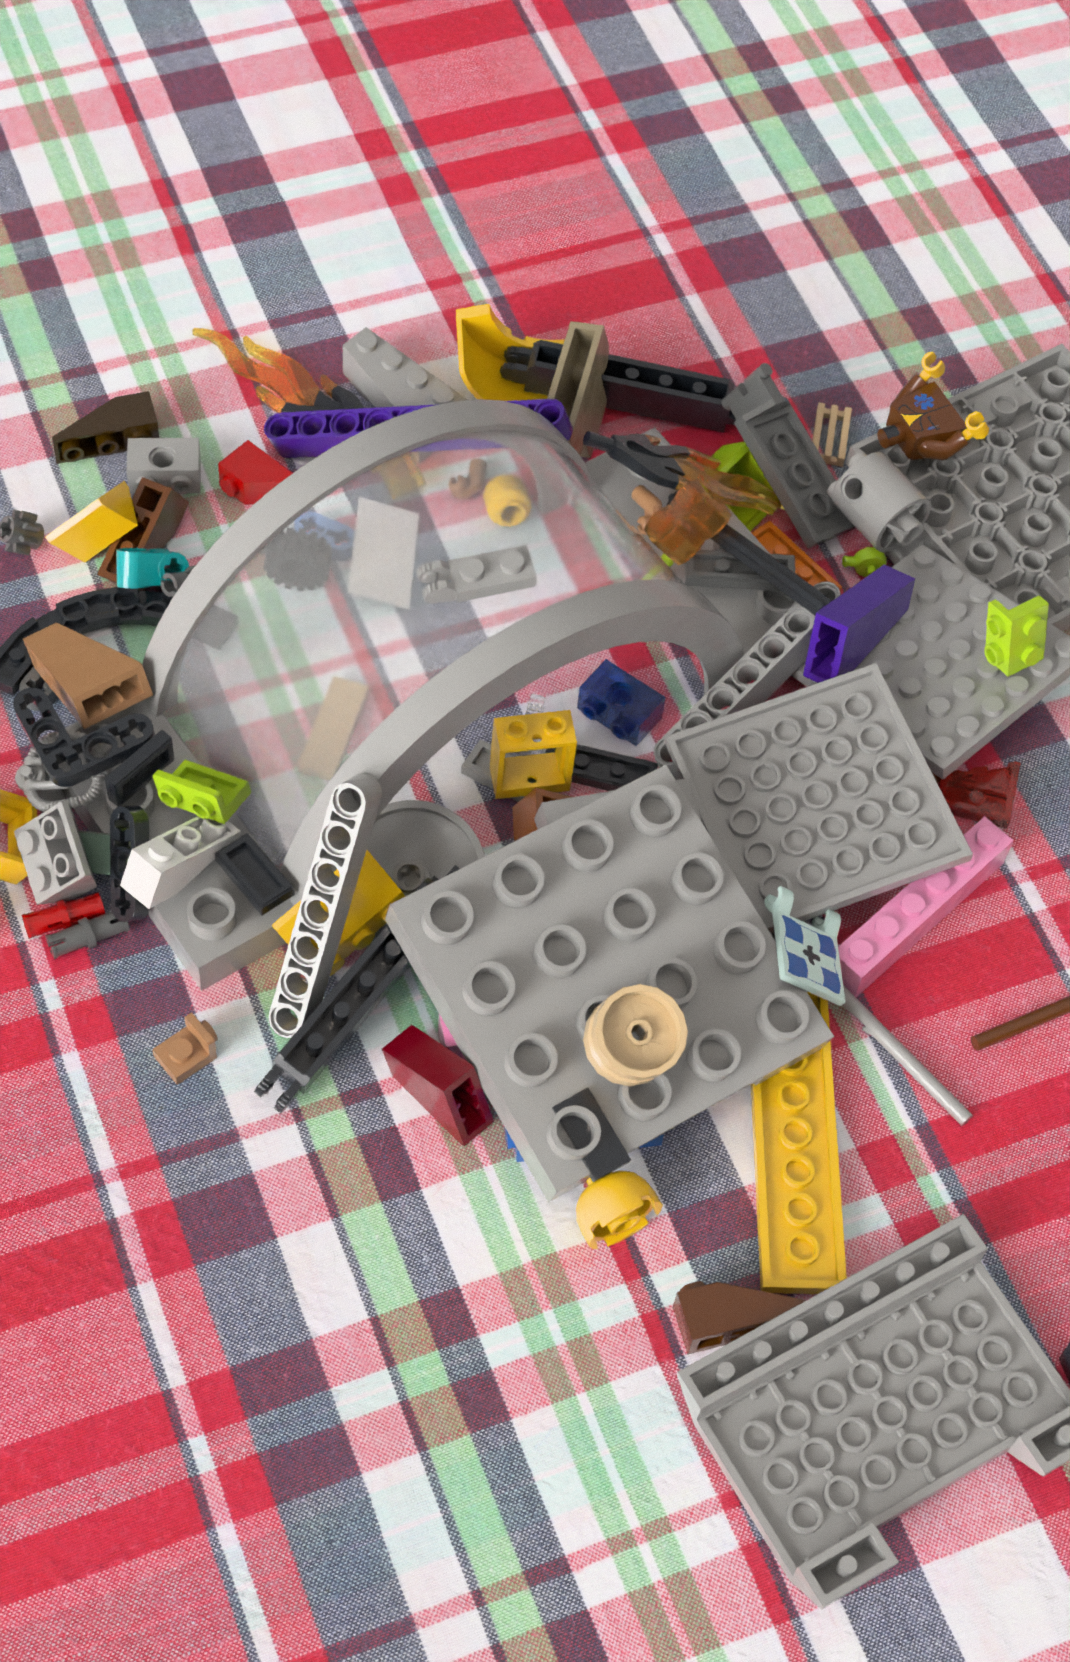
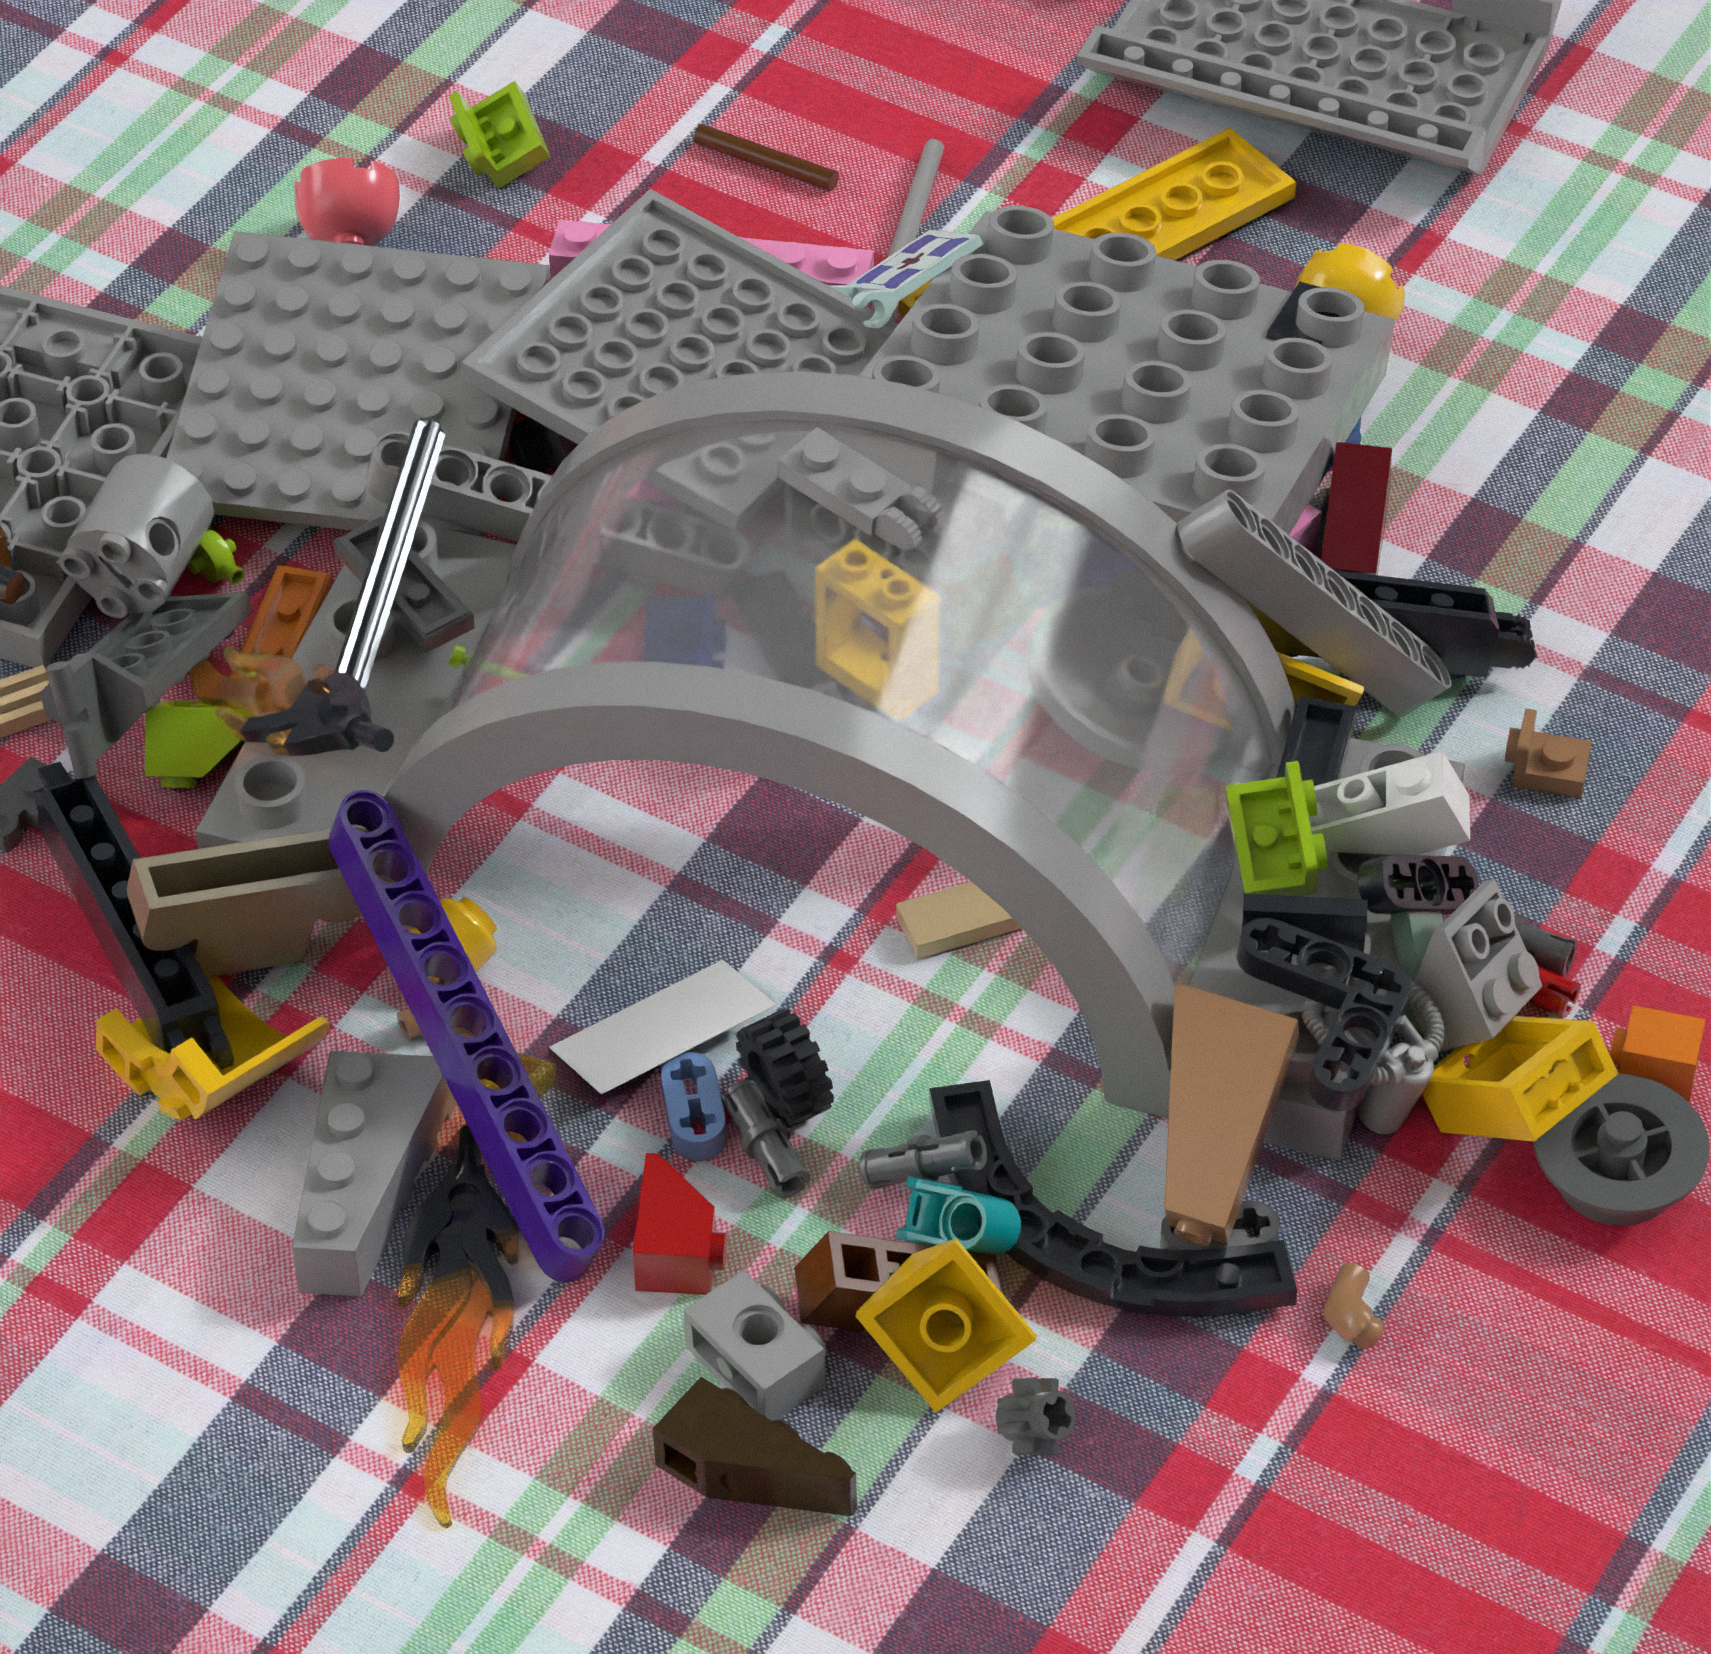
camera: 120 degrees left, 10 degrees down
(648, 502) = (398, 700): medium nougat arm -> none
(654, 1019) = (1202, 265): tan wheel -> none
(687, 522) = (397, 604): clear orange brick -> none
(724, 1312) = (1347, 191): reddish brown slope -> none
(856, 623) = (338, 428): dark purple slope -> none
(1016, 635) = (312, 247): lime bracket -> none

